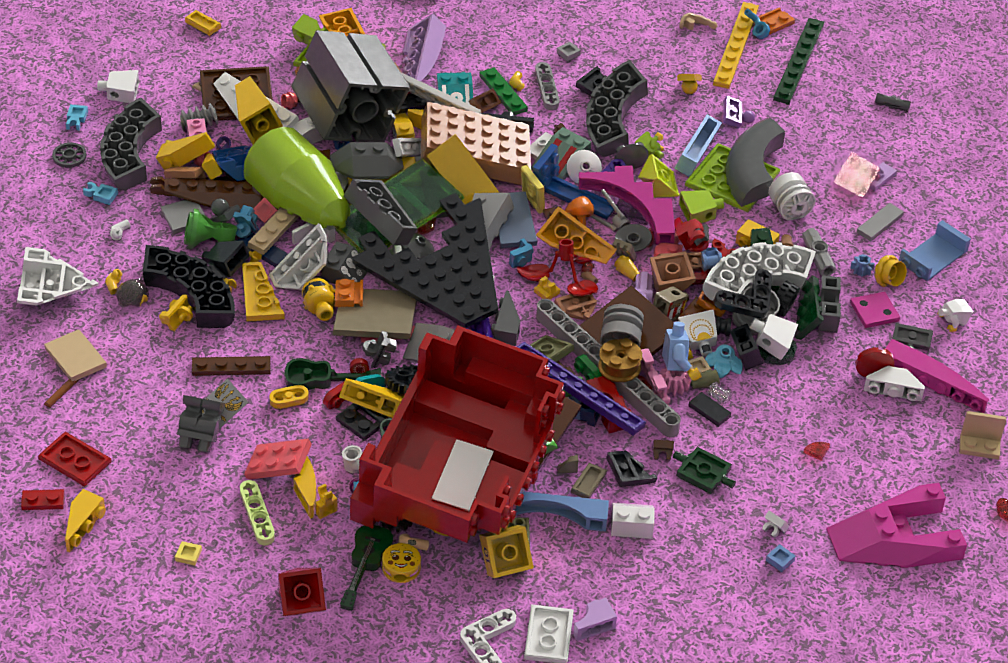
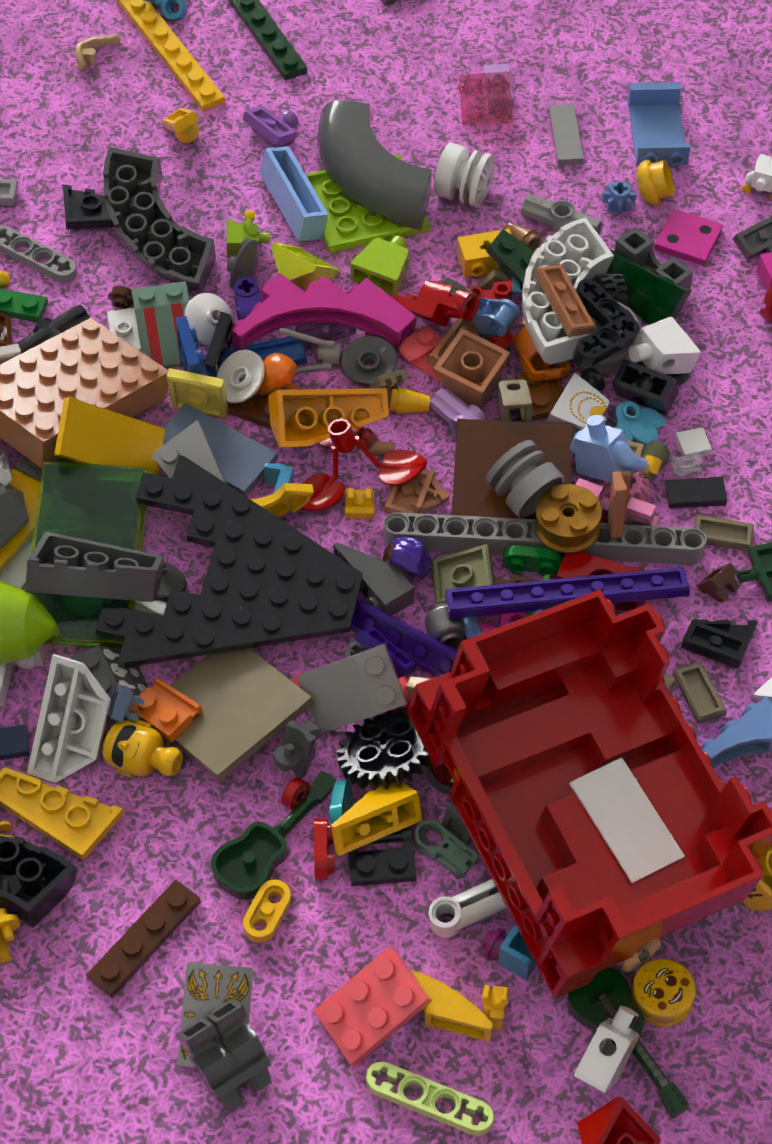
camera: 45 degrees left, 10 degrees up
(330, 271) = (120, 704): none -> sand blue tile
(340, 552) = (603, 1060): none -> white torso
(506, 258) = (288, 498): none -> yellow tile
(532, 322) = (409, 555): none -> dark purple hair
(561, 197) = (242, 375): none -> white dish
(567, 174) = (220, 342): none -> black tile
(650, 365) = (617, 502): none -> nougat slope
(697, 434) = (725, 532): none -> dark tan tile
(740, 390) = (693, 441): none -> white tile
(744, 271) = (564, 300): none -> nougat tile

